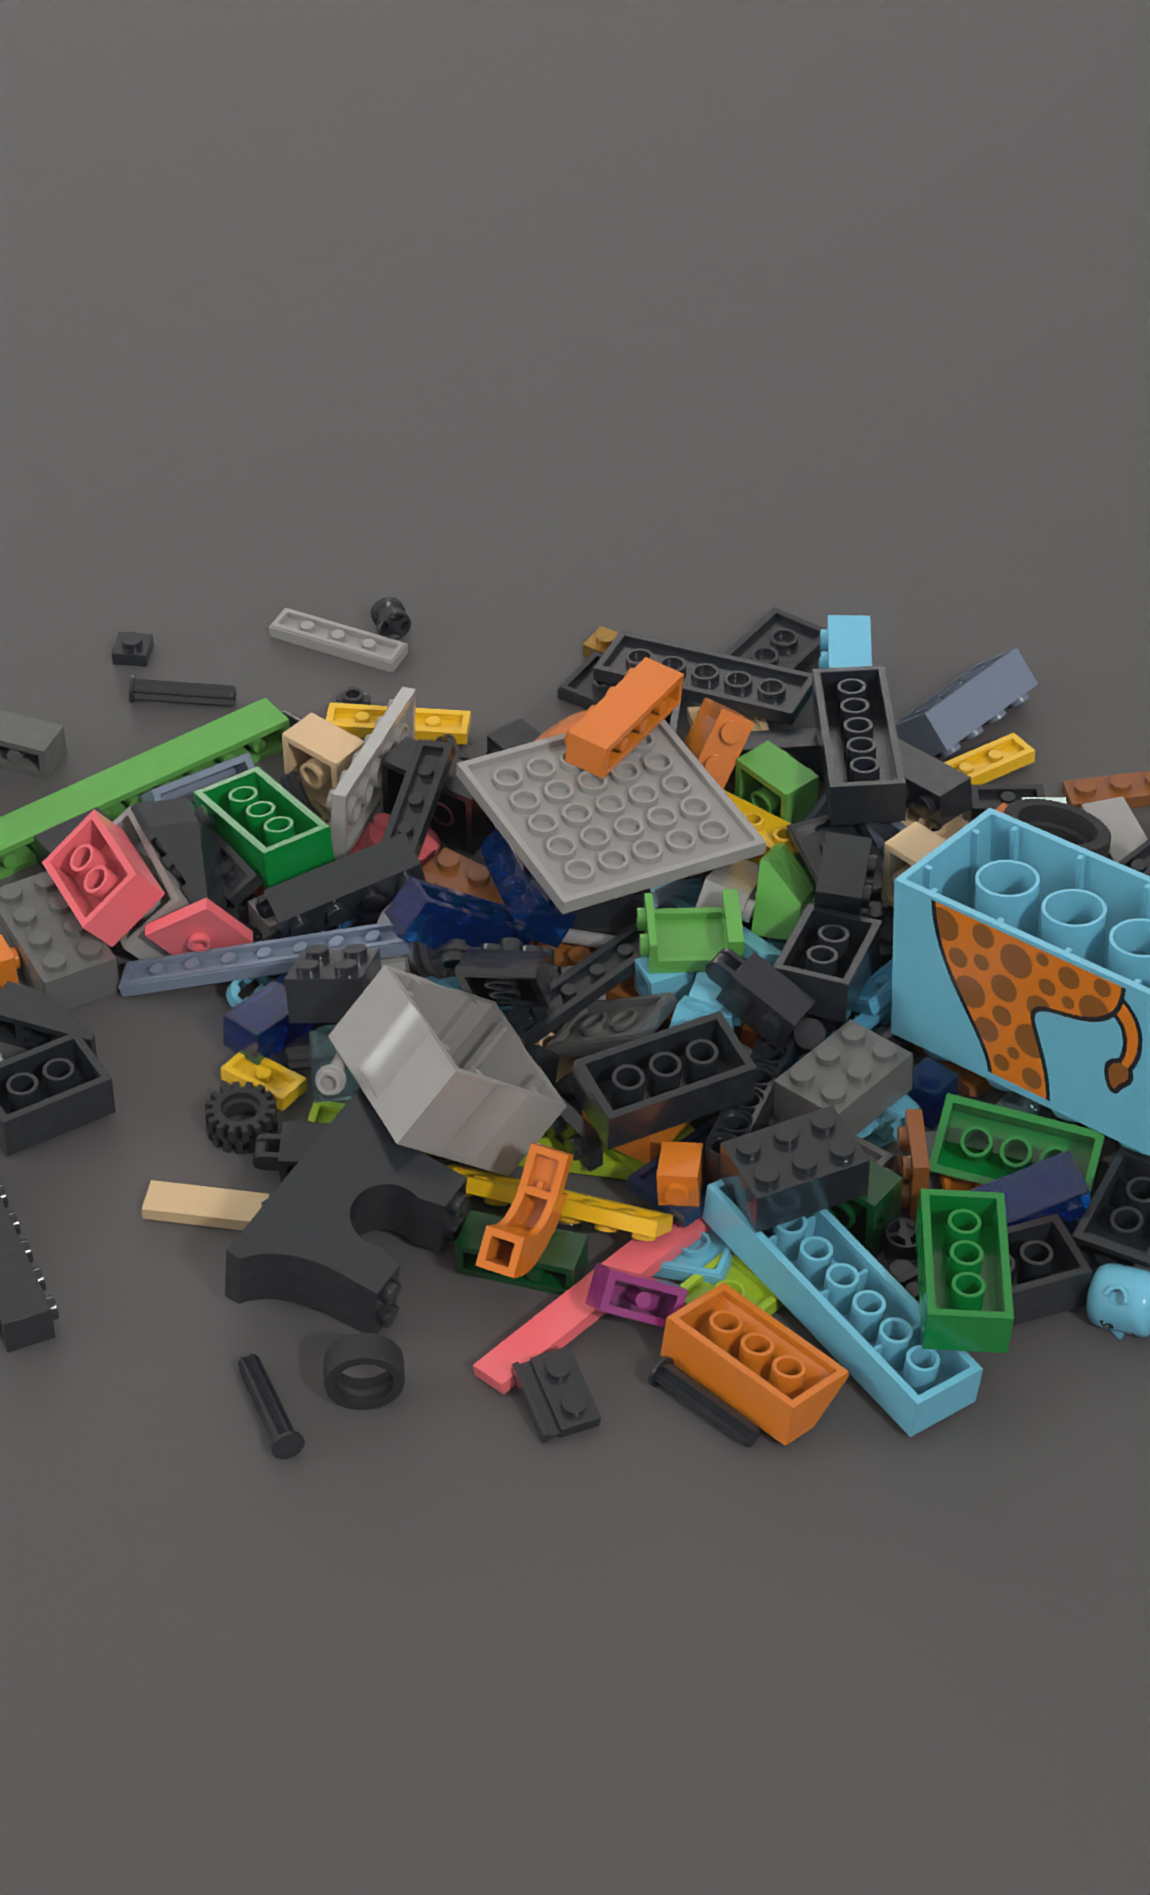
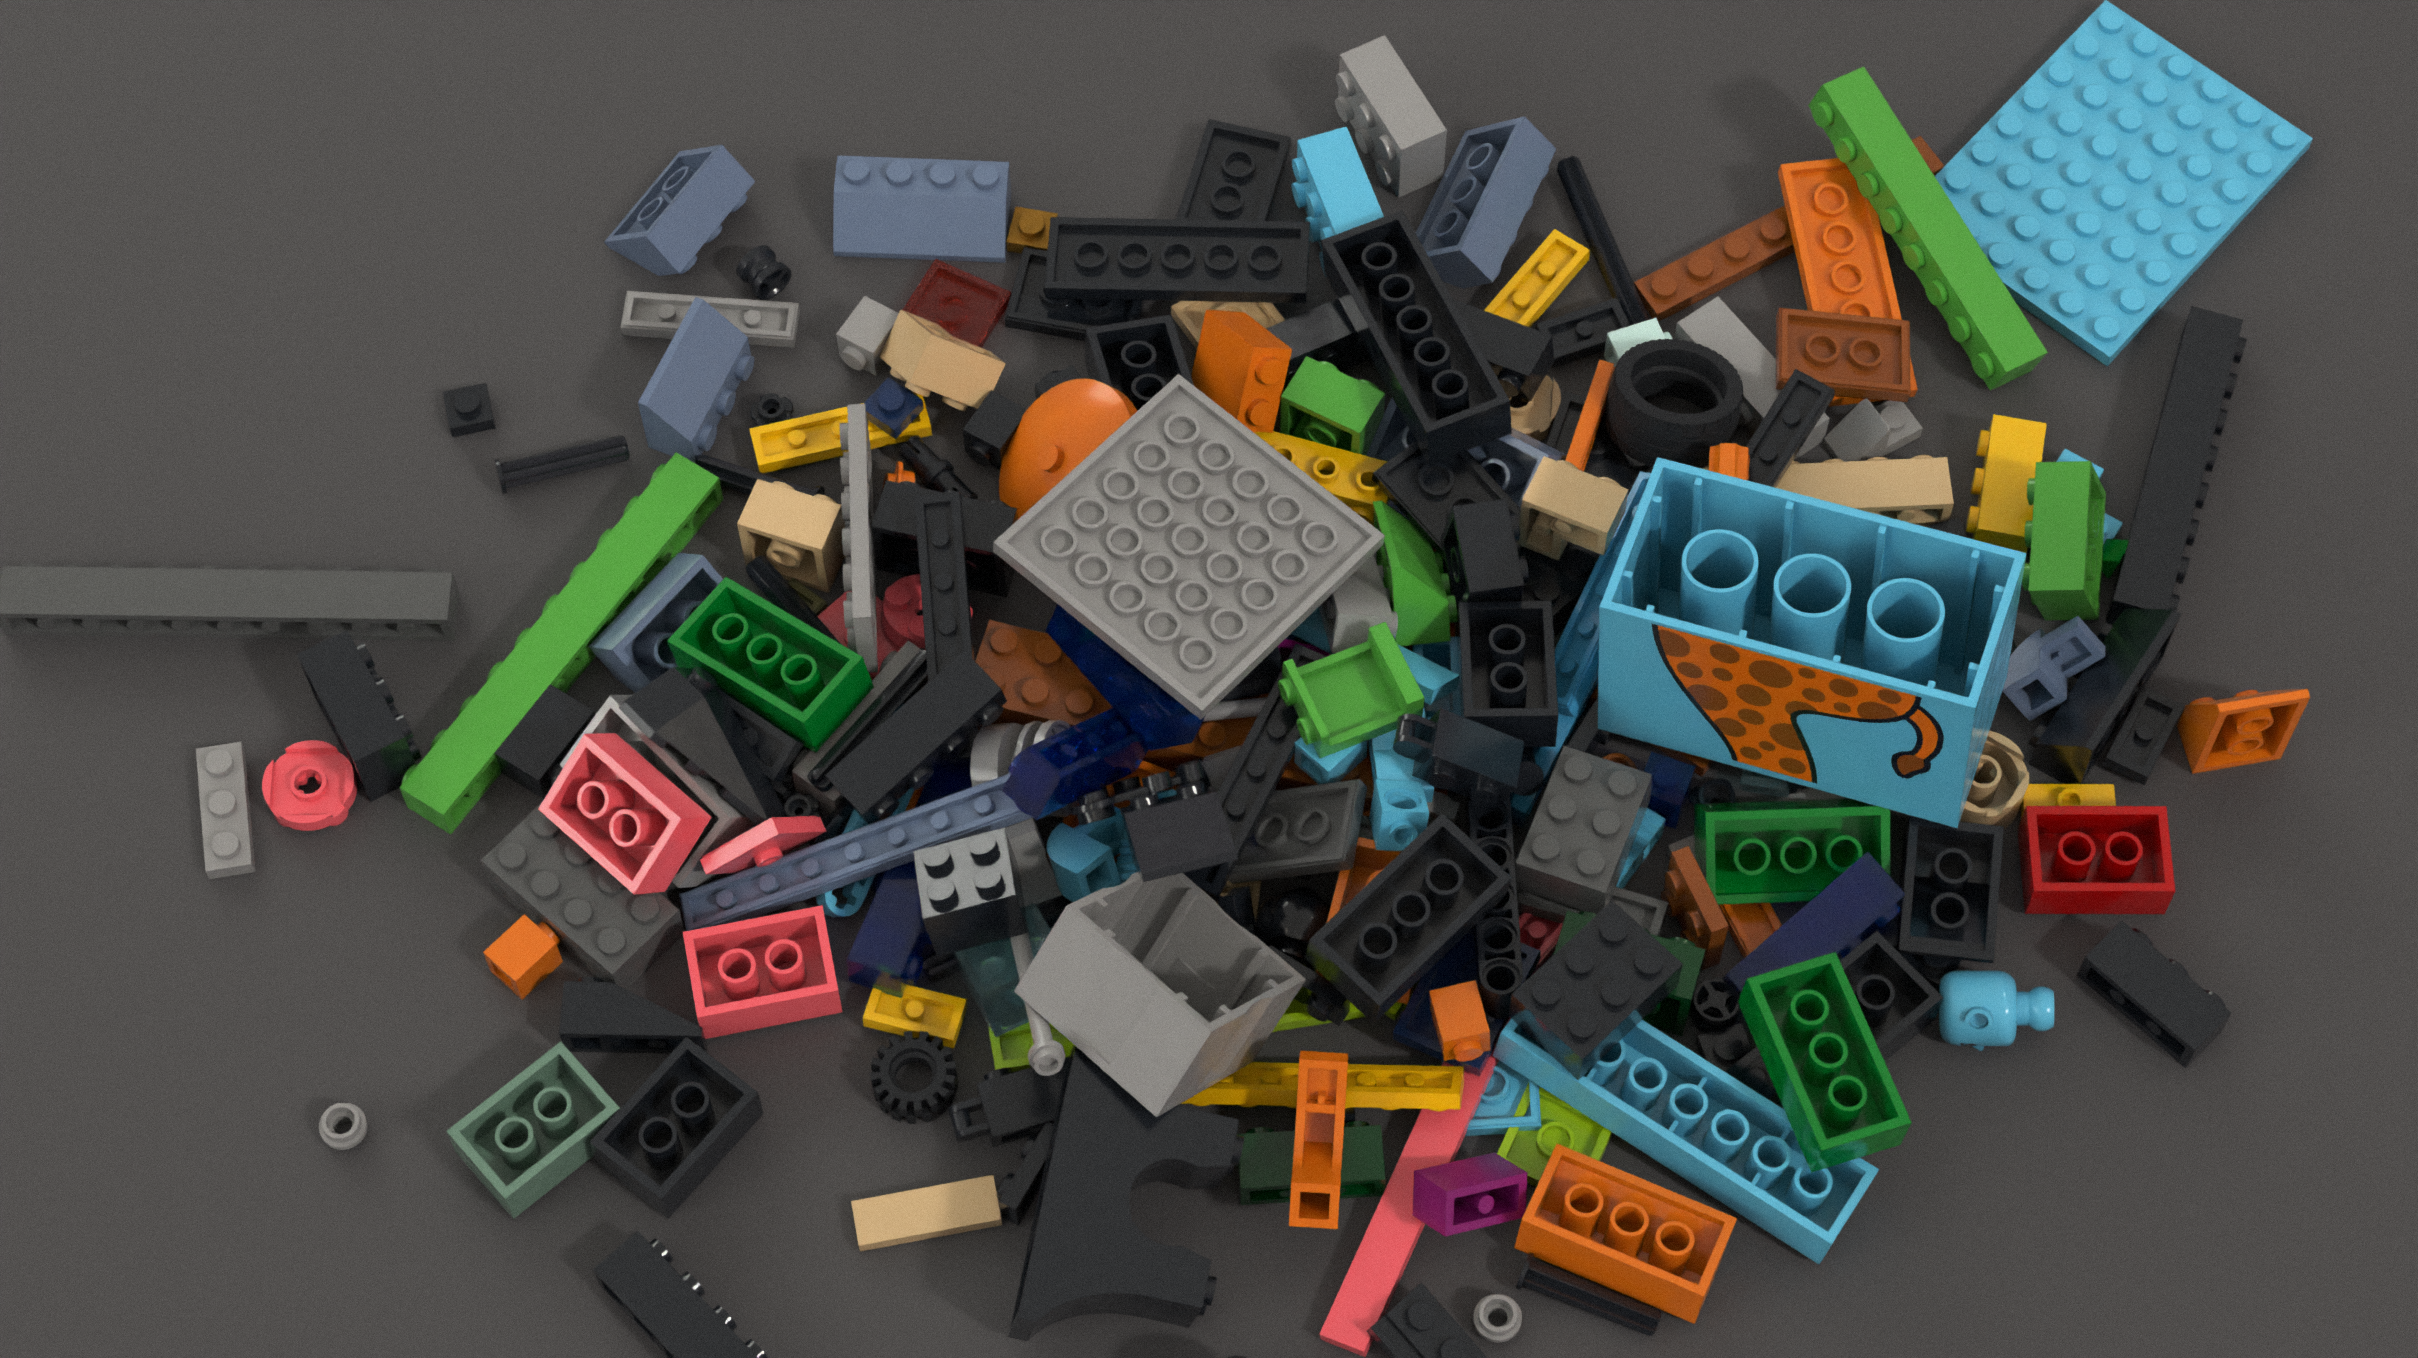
camera: 20 degrees left, 20 degrees up
(159, 1017) = (762, 972): none -> coral brick
(302, 659) = (695, 383): none -> sand blue slope
(351, 570) = (682, 210): none -> sand blue slope
(441, 713) = (893, 407): none -> dark blue plate
(449, 672) = (865, 335): none -> light grey brick
(492, 691) = (940, 363): none -> tan brick
(520, 678) = (959, 302): none -> clear red tile
(528, 608) = (921, 209): none -> sand blue slope
(623, 717) = (1159, 412): orange brick -> none
(623, 1396) = (1497, 1304): none -> light grey plate
(913, 632) = (1390, 116): none -> light grey brick
(1049, 746) = (1600, 239): none -> black axle

